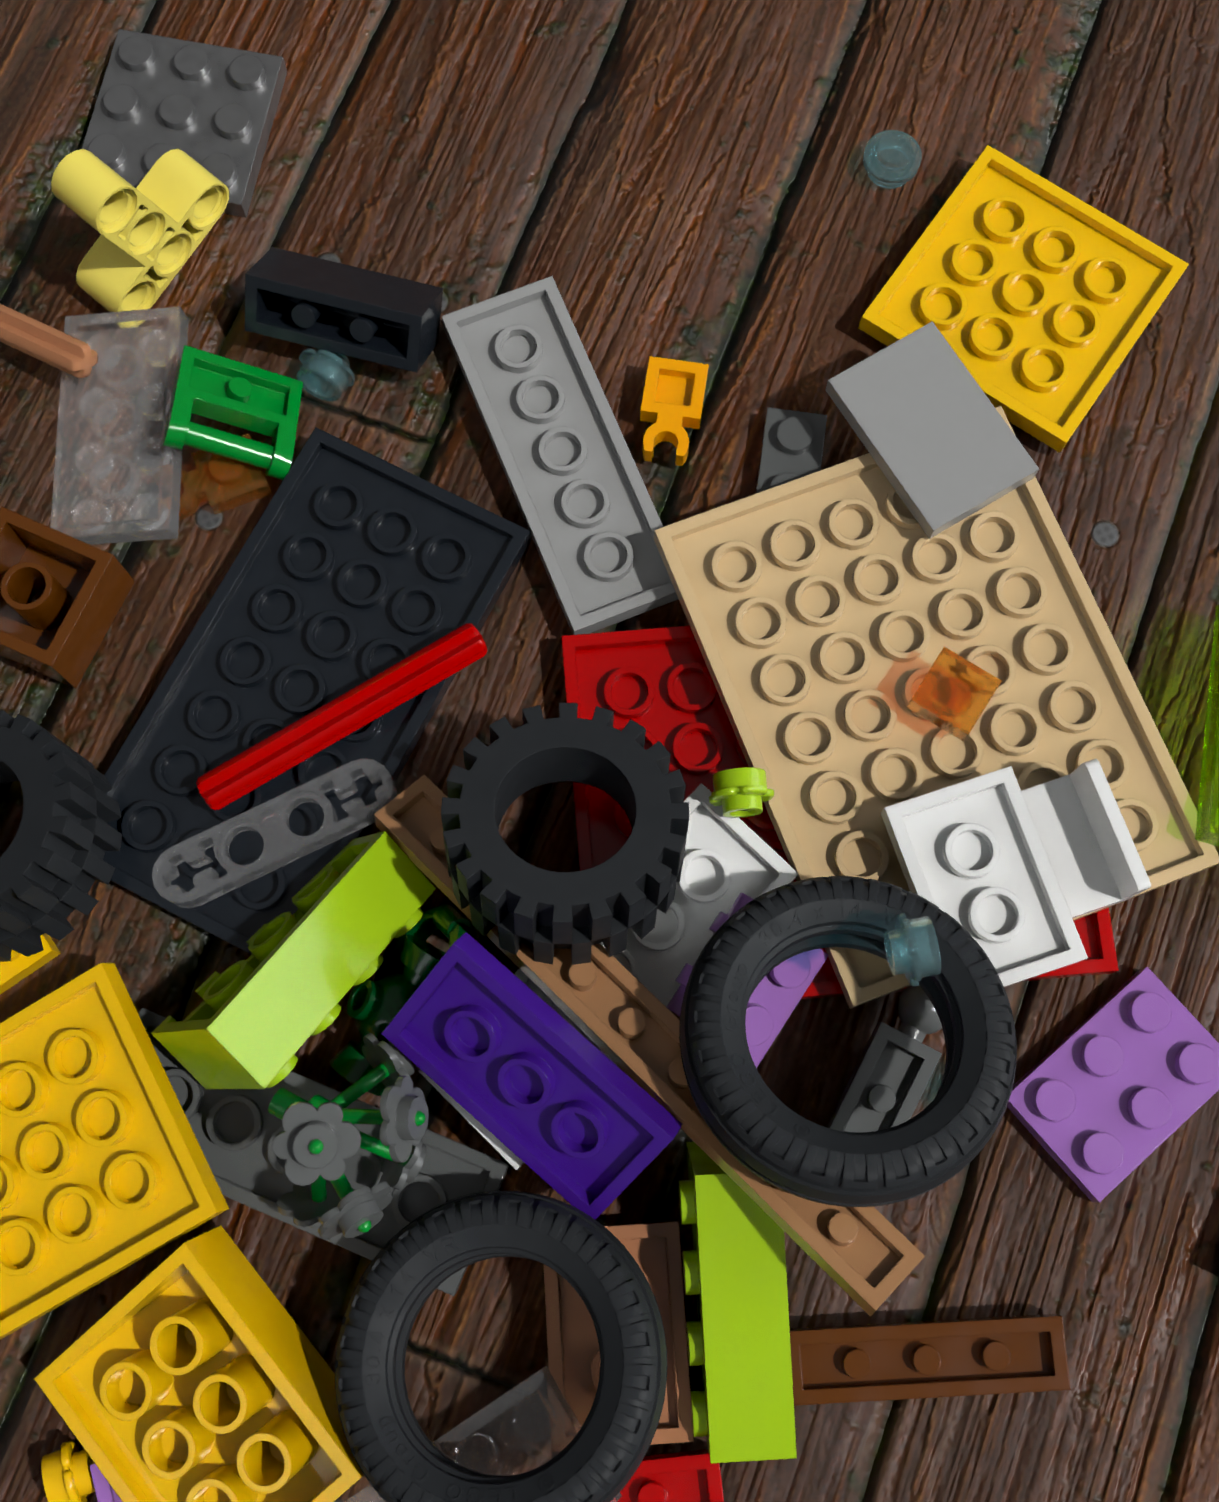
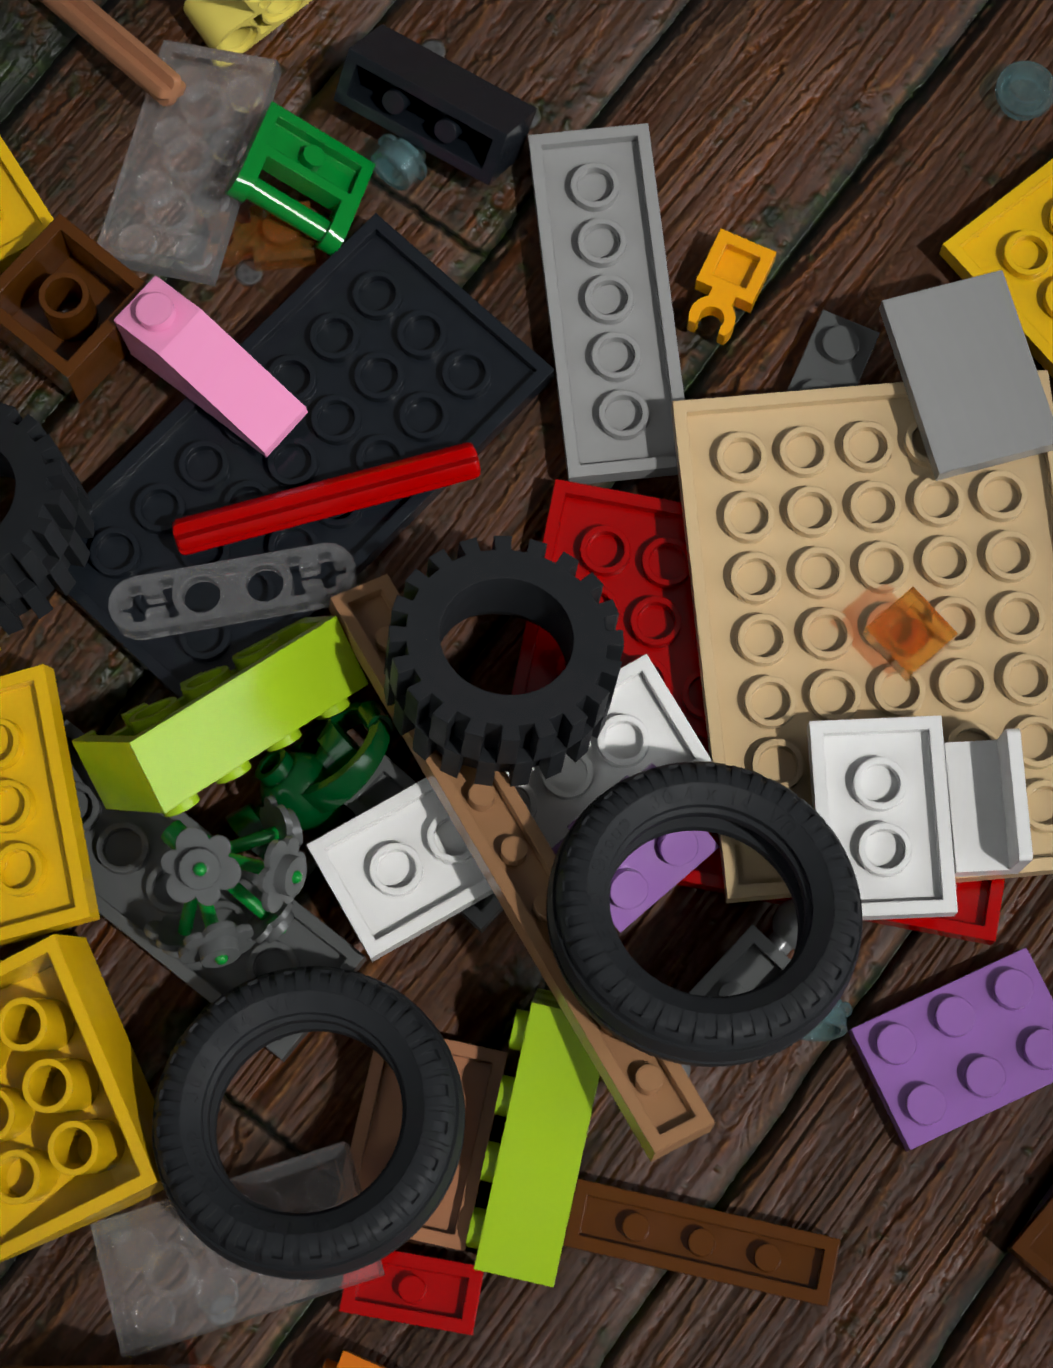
camera: 15 degrees right, 0 degrees up
(189, 617) = (208, 366): none -> bright pink slope
(531, 1078) = (406, 872): dark purple plate -> none
(740, 791) = (679, 670): lime plate -> none
(913, 948) = (783, 846): clear light blue plate -> none

